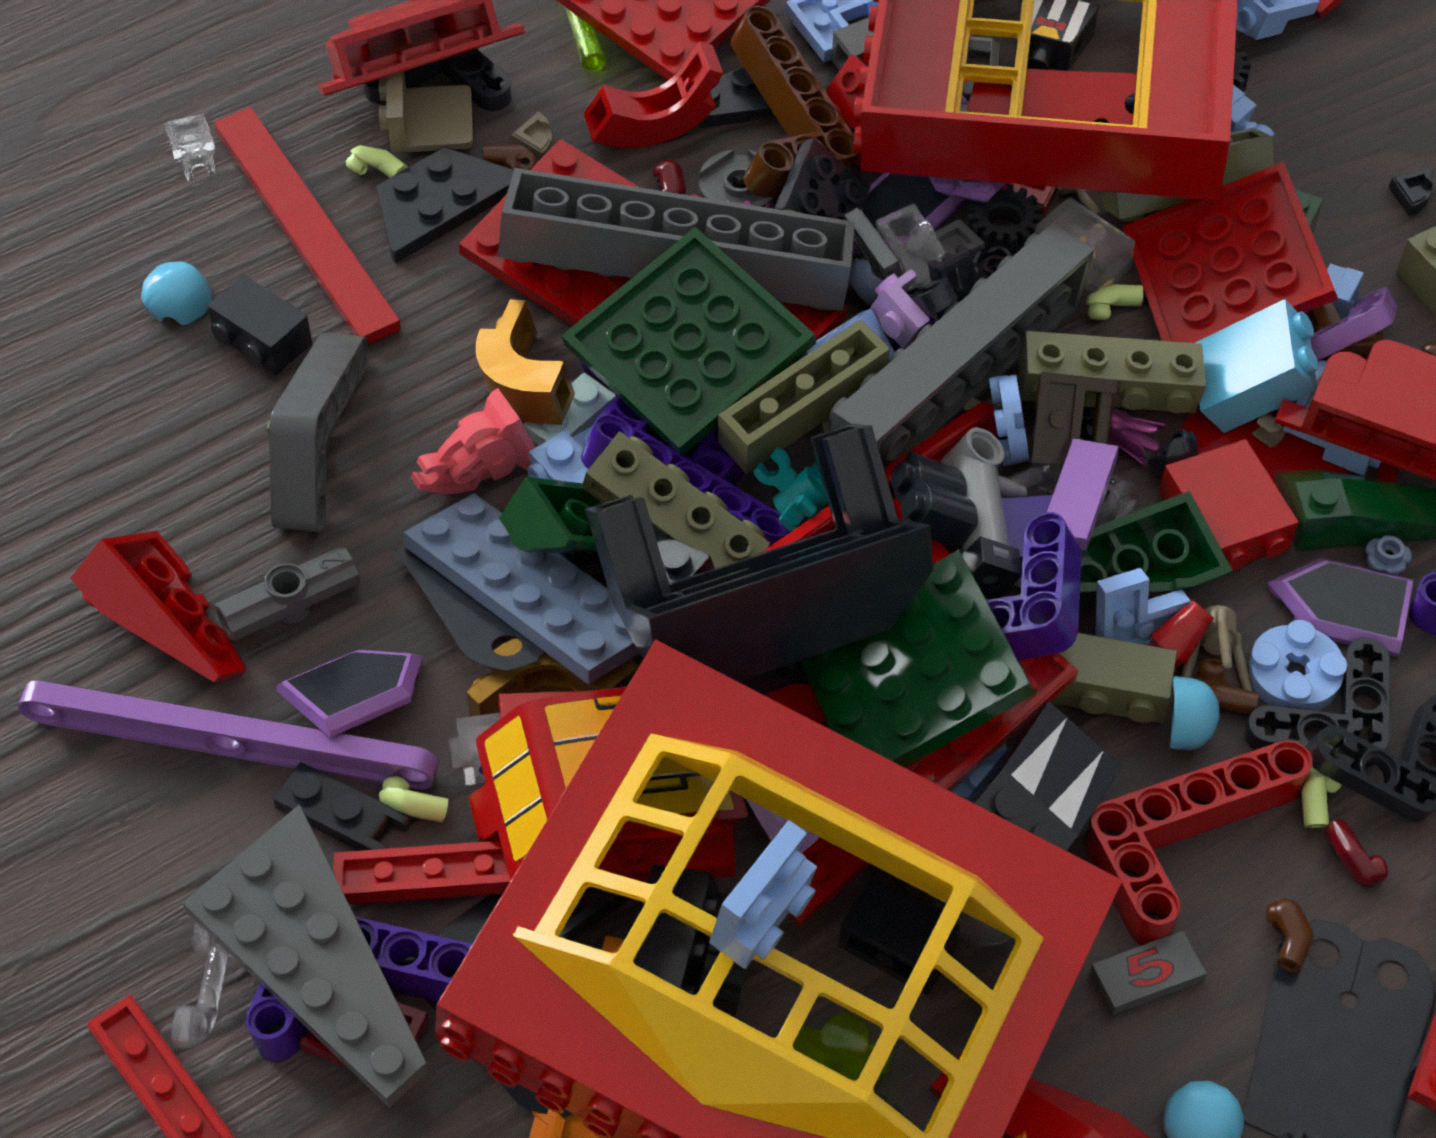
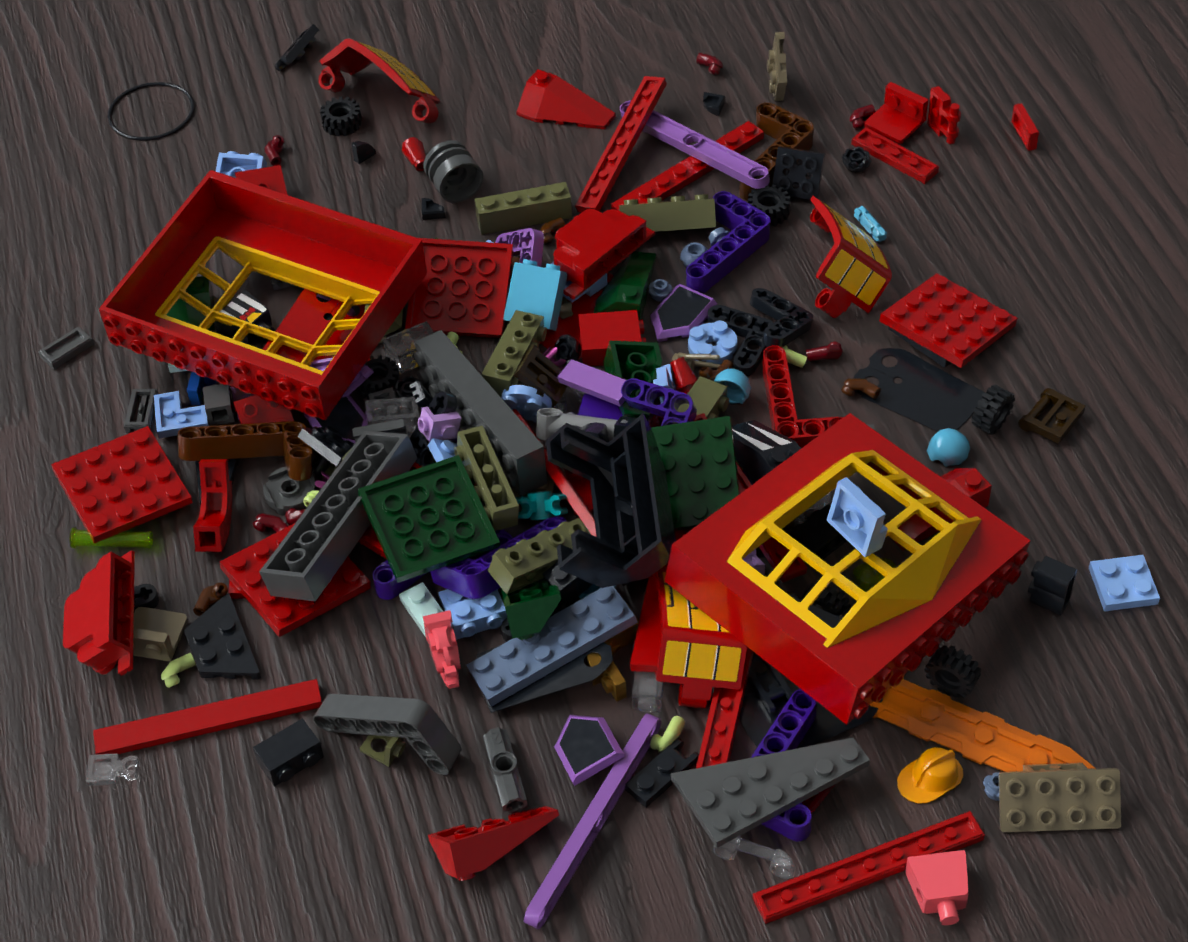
camera: 70 degrees left, 5 degrees down
(176, 292) = (235, 798): medium azure hair -> none
(534, 135) = (195, 583): dark tan tile -> none
(534, 388) = (394, 626): arch -> none

